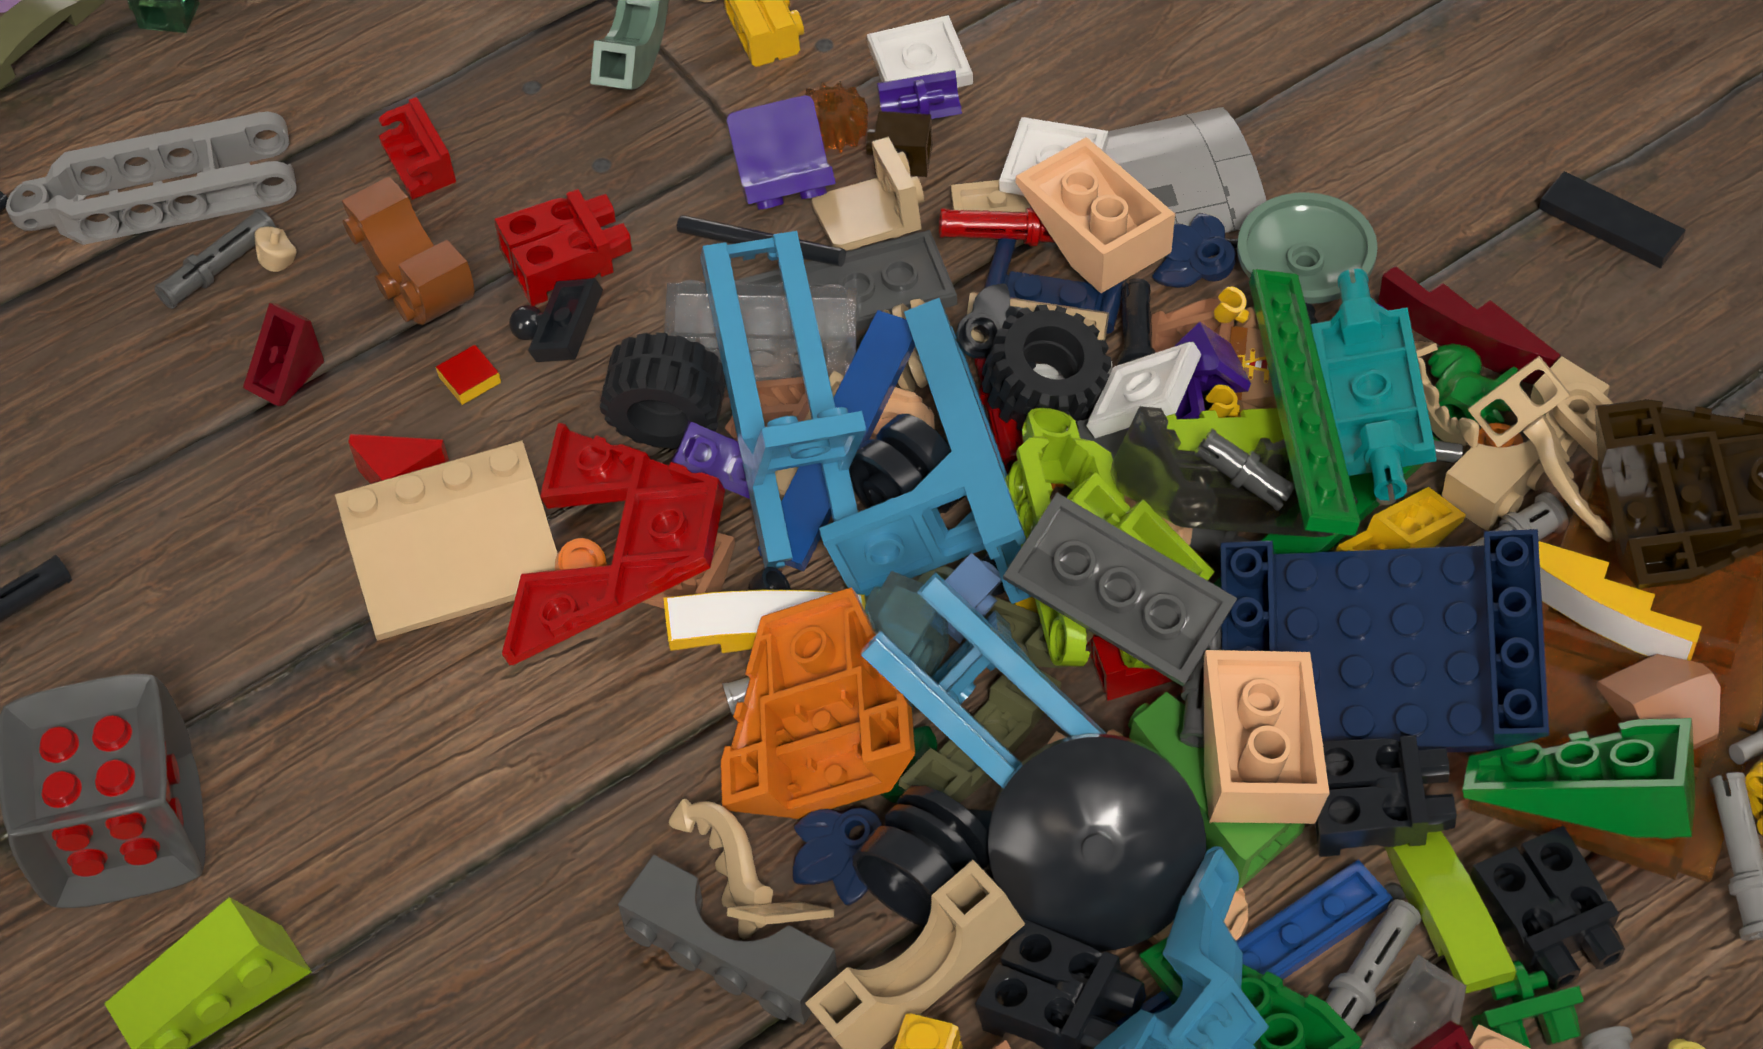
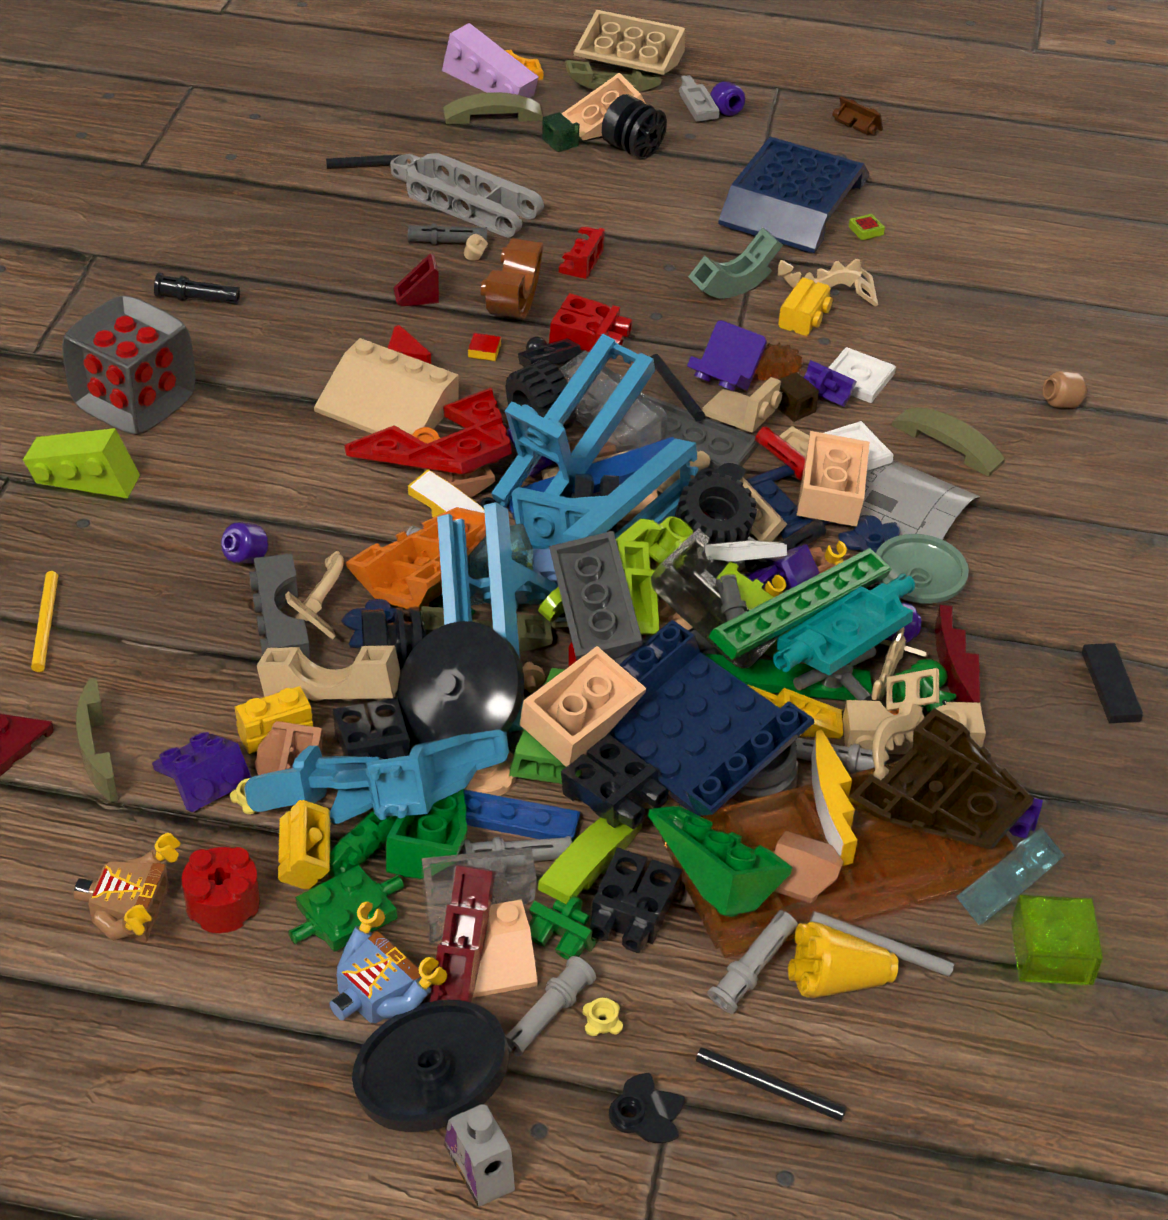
camera: 40 degrees right, 10 degrees down
(568, 895) = (244, 542): none -> dark purple head
(1108, 53) = (979, 451): none -> olive slope

